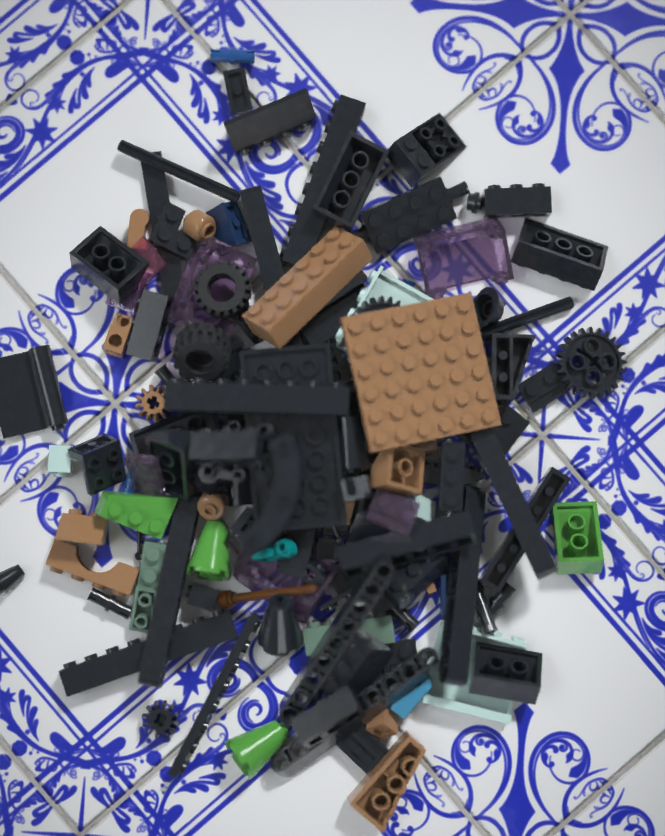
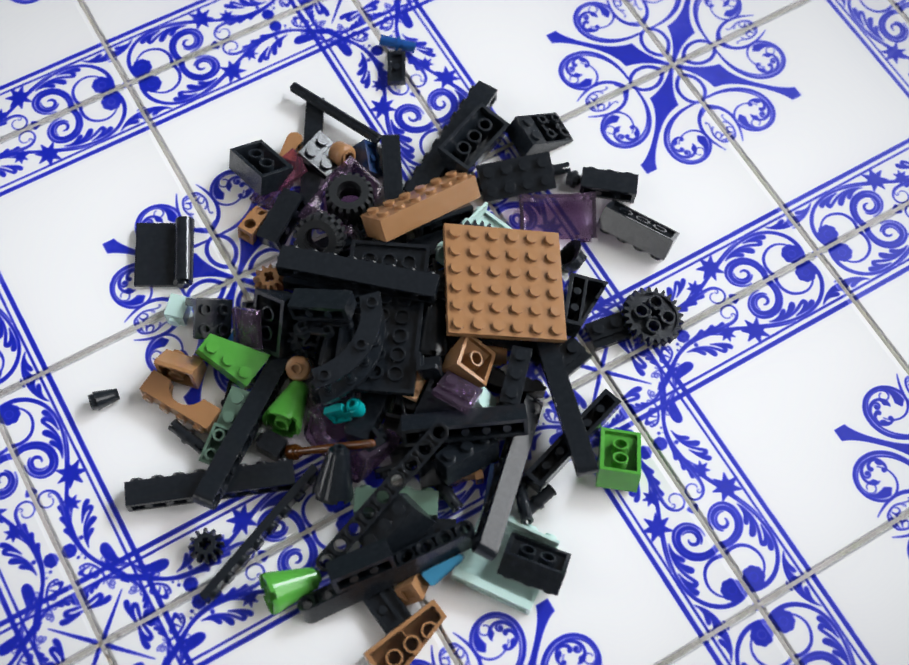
camera: 10 degrees right, 20 degrees down
(270, 122) = (417, 89): black slope -> none
(528, 317) = (610, 272): black axle -> none

